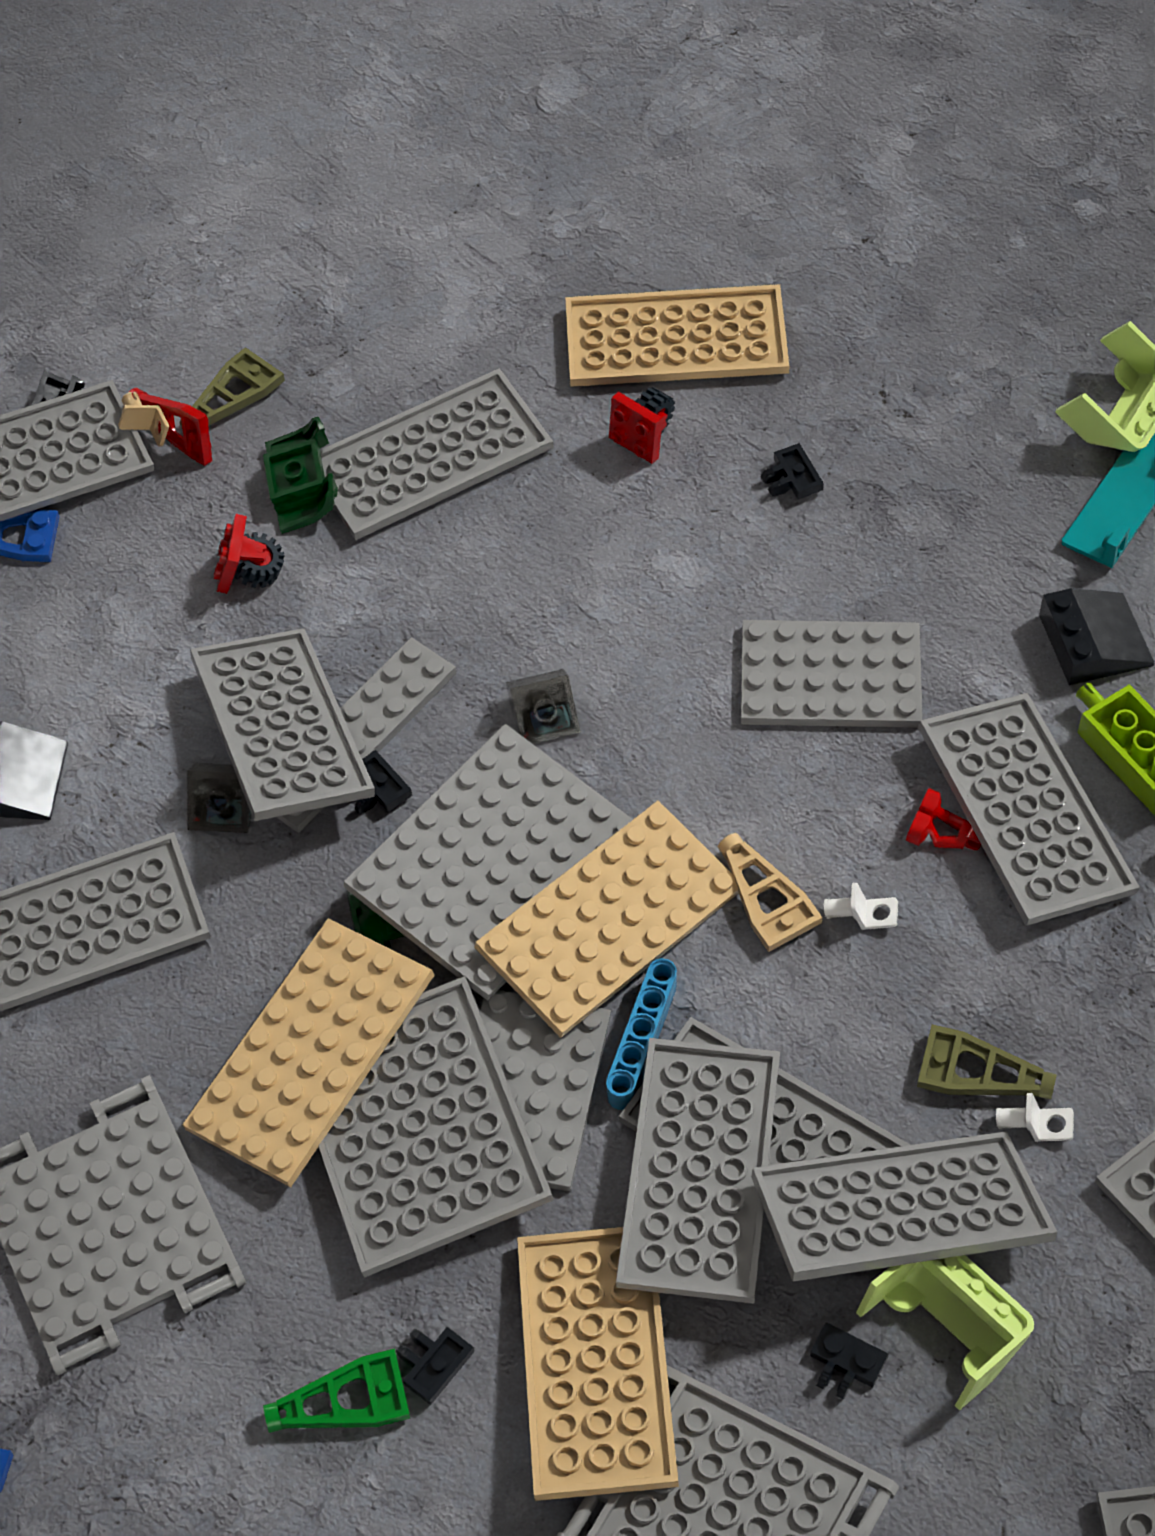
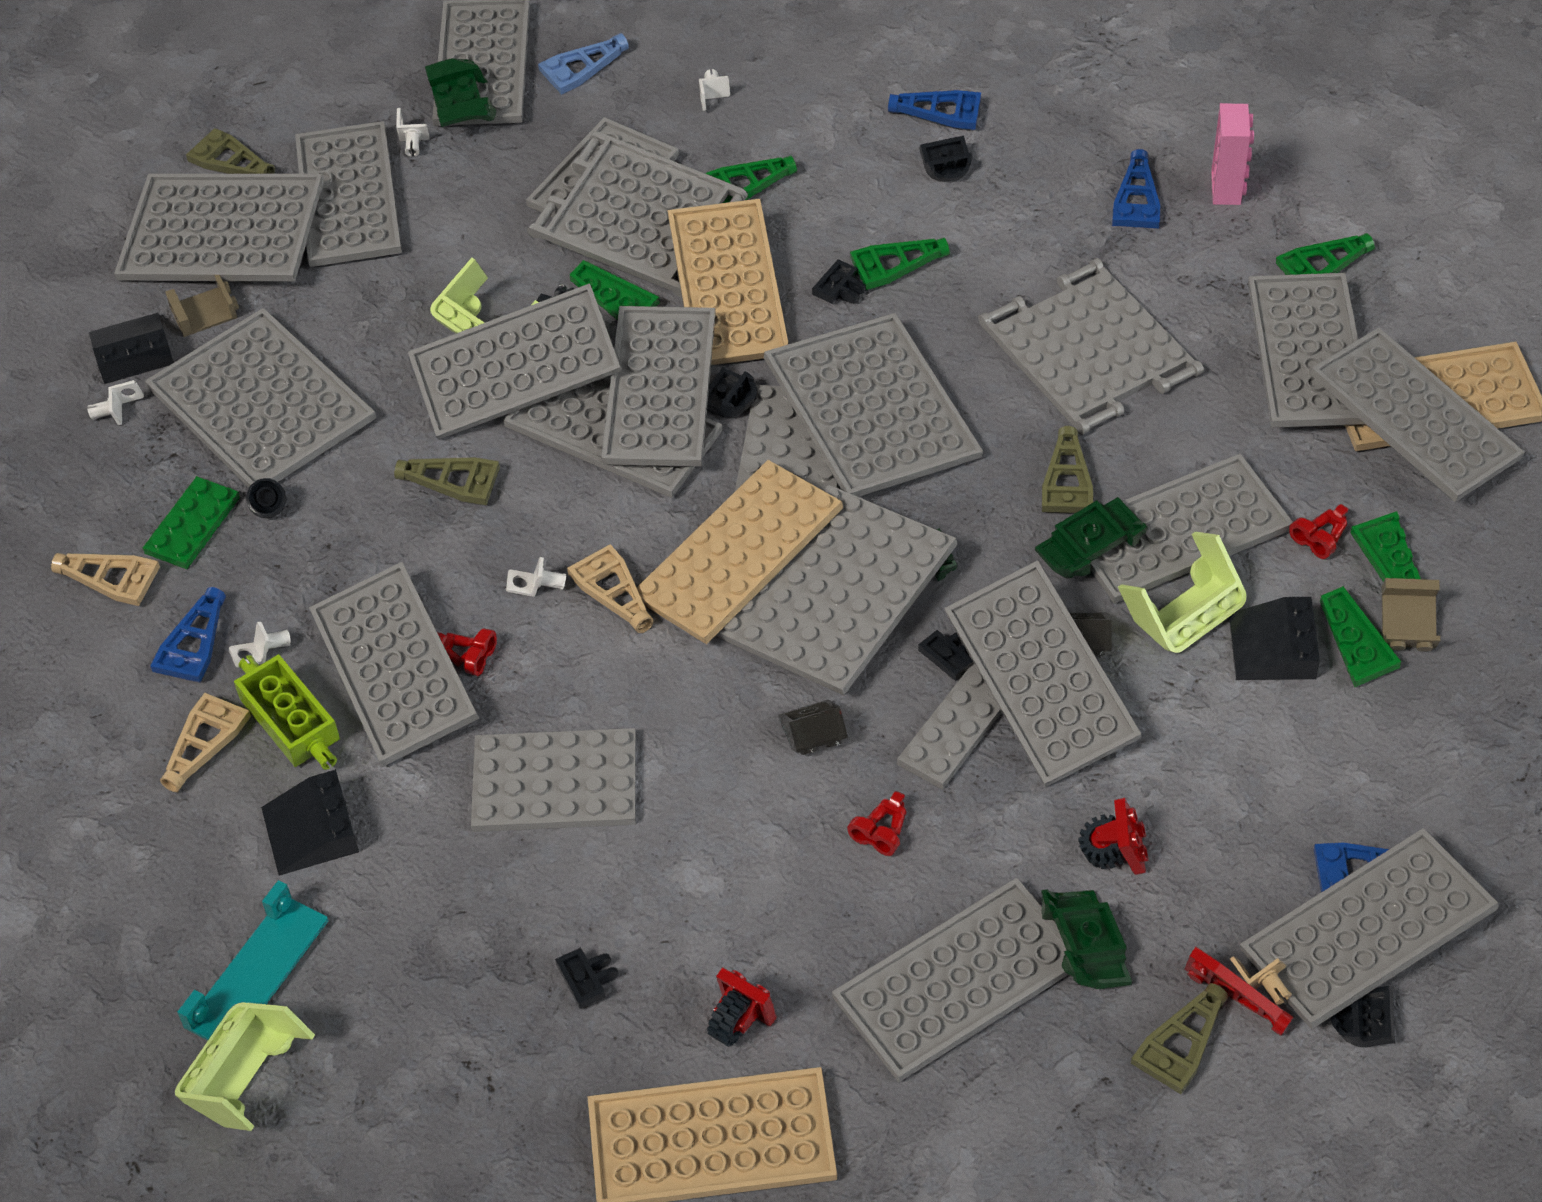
camera: 175 degrees right, 5 degrees down
(95, 815) = (1199, 609): none -> yellowish green windscreen
(177, 900) = (1089, 536): none -> dark green piece
(193, 975) = (1067, 498): none -> olive plate
(308, 1052) = (961, 446): tan plate -> none
(483, 581) = (882, 838): none -> red piece
(601, 1170) = (731, 393): none -> black slope
(641, 1019) = (708, 479): dark azure beam -> none
(757, 1365) = (611, 290): none -> green wing
(1036, 1120) = (413, 447): white bracket -> none

